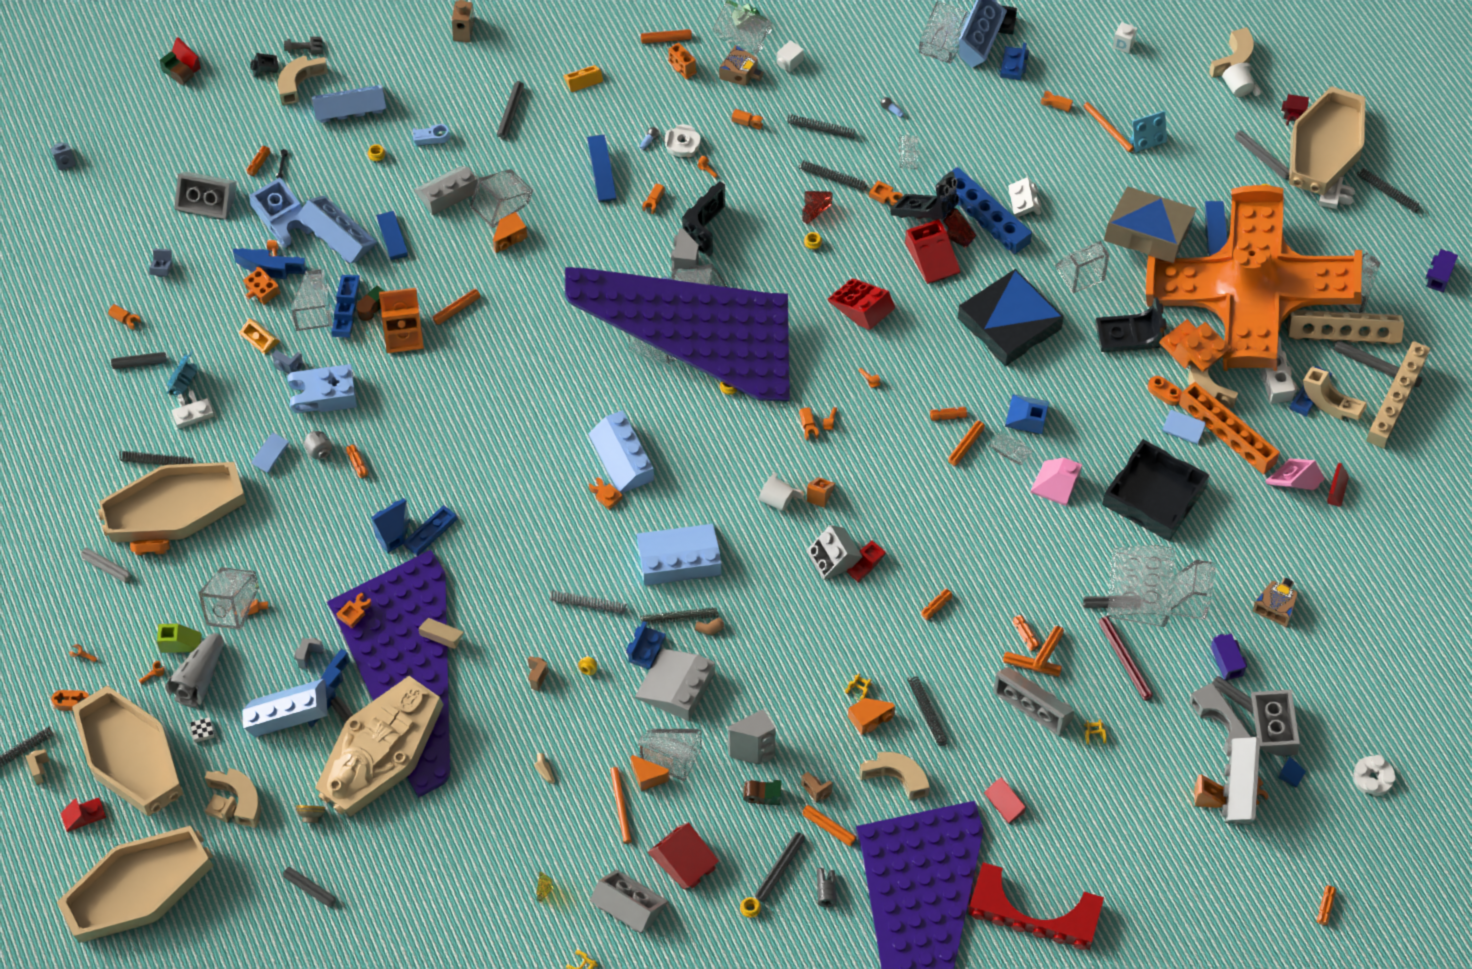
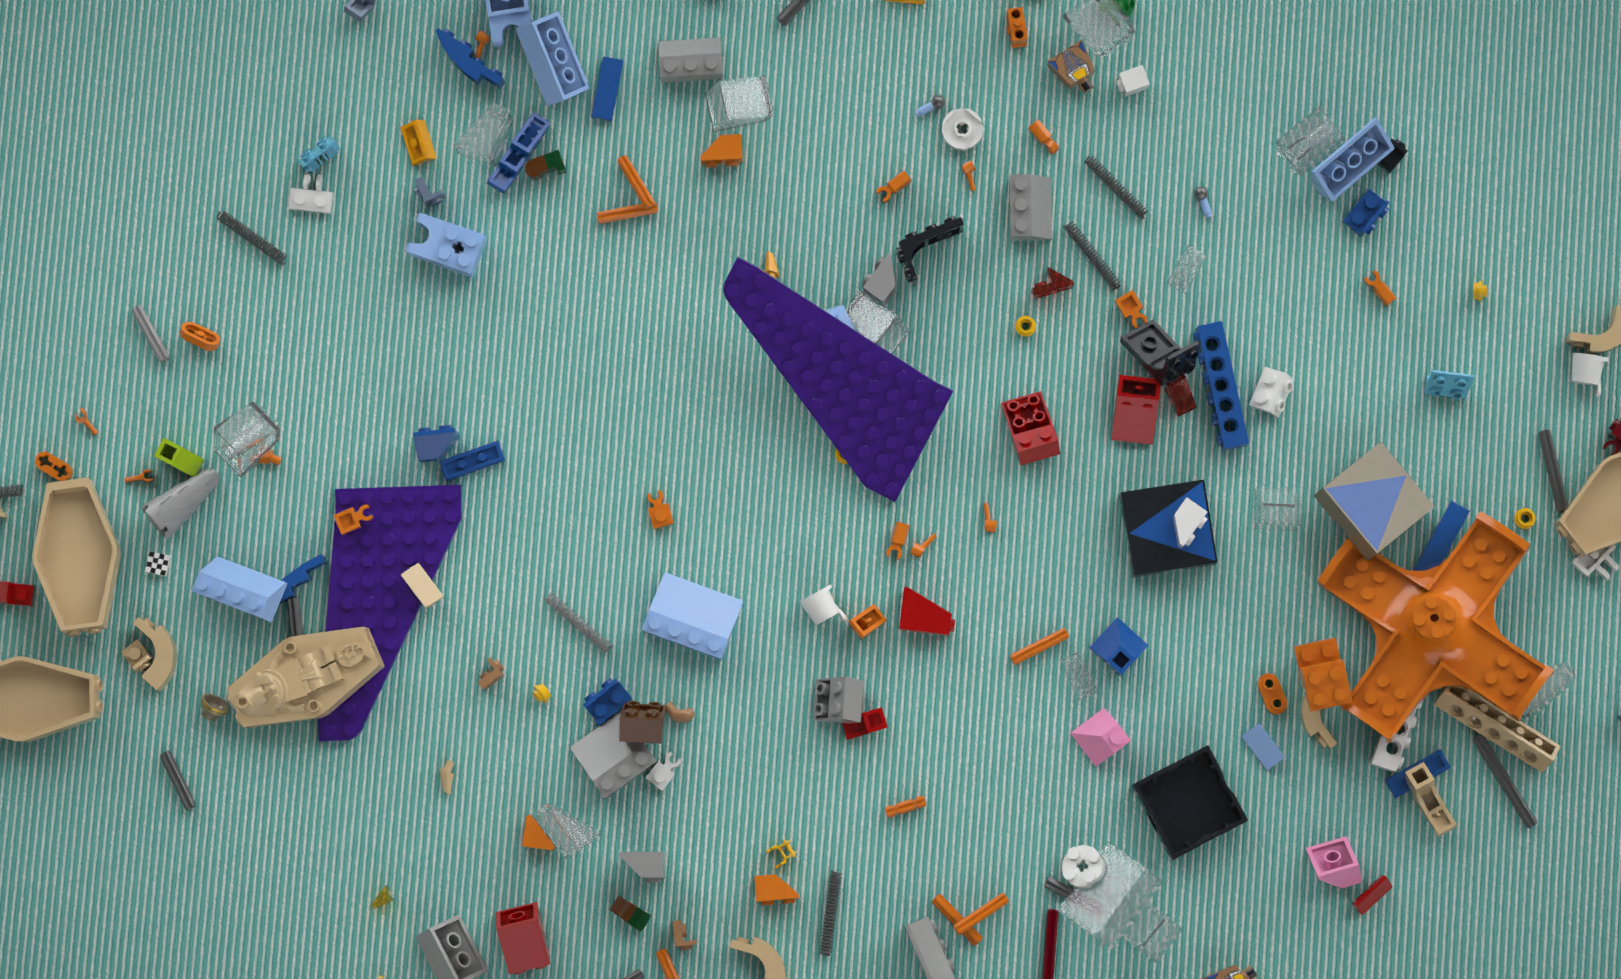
camera: 35 degrees right, 25 degrees up
(123, 316) = (296, 46): orange bar -> none
(138, 360) = (287, 109): dark grey axle -> none
(172, 502) = (242, 299): tan container -> none
(261, 286) = (452, 84): orange piece -> none
(269, 452) = (362, 290): light blue slope -> none
(303, 653) = (286, 534): light grey bracket -> none
(317, 444) = (411, 307): light grey head -> none
(357, 461) = (441, 344): orange axle -> none
(401, 320) = (561, 205): orange bracket -> none
(451, 281) = (636, 182): none -> orange axle
(601, 168) = (859, 120): blue slope -> none
(620, 805) = (496, 852): orange bar -> none
(621, 452) = (697, 475): light blue slope -> none
(685, 615) = (653, 687): clear smoke piece -> none
(686, 639) = (642, 722): none -> reddish brown slope
(724, 677) = (662, 774): none -> white plate
(764, 166) = (1030, 207): none -> light grey slope
(863, 462) = (924, 616): none -> red slope
(948, 413) = (1041, 603): orange axle -> none
(1021, 296) = (1186, 520): none -> white slope
(1026, 632) = (971, 883): orange axle -> none
(1098, 567) = (1075, 857): none -> white plate
(1108, 127) = (1415, 348): orange bar -> none
(1124, 37) = (1501, 247): white brick -> none
(1128, 70) = (1479, 291): none -> yellow plate
(1132, 331) = (1279, 609): black bracket -> none
(1229, 428) = (1303, 775): orange brick -> none
(1398, 394) = (1496, 832): tan brick -> none

